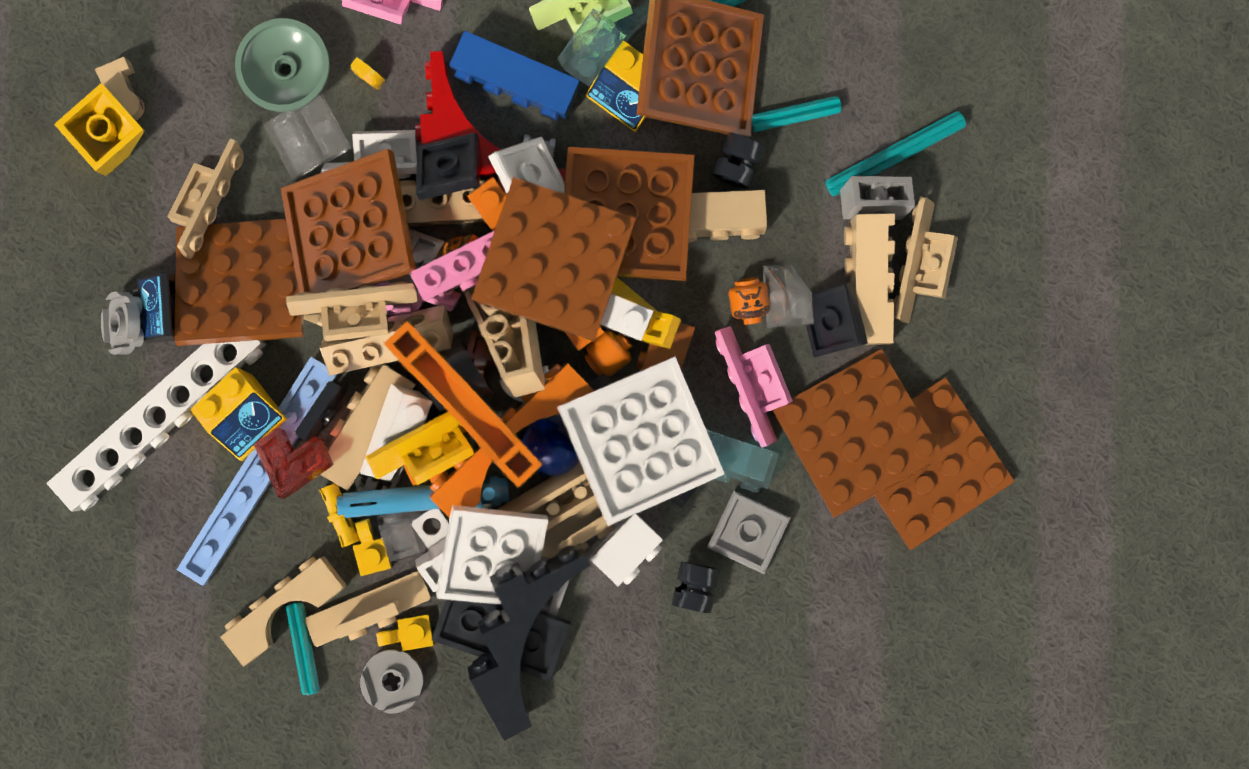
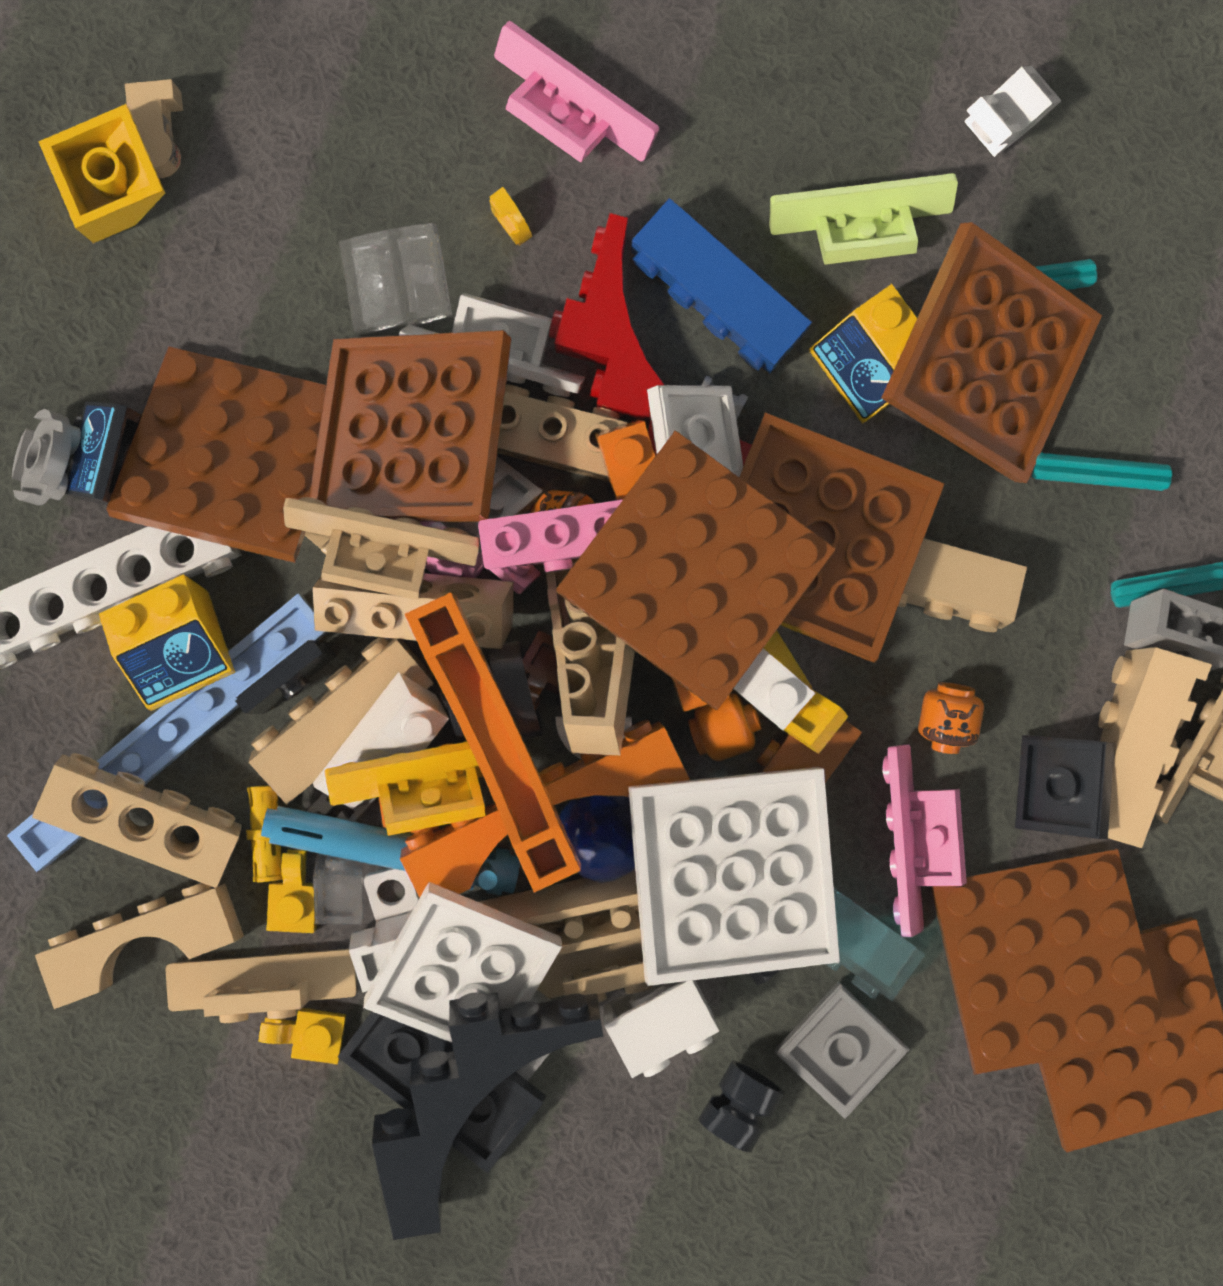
camera: 20 degrees right, 0 degrees up
(200, 197) = (216, 315): tan bracket -> none
(269, 49) = (386, 136): sand green dish -> none
(289, 468) = (214, 747): clear red plate -> none
(302, 649) = (150, 1008): teal axle -> none
(306, 544) = (65, 808): none -> tan brick
(377, 670) = (243, 1115): light grey plate -> none
(448, 166) = (583, 385): black plate -> none
(591, 47) = (844, 281): clear light blue brick -> none
(744, 151) = (1008, 498): black wheel -> none
(788, 297) = (1010, 732): clear slope -> none

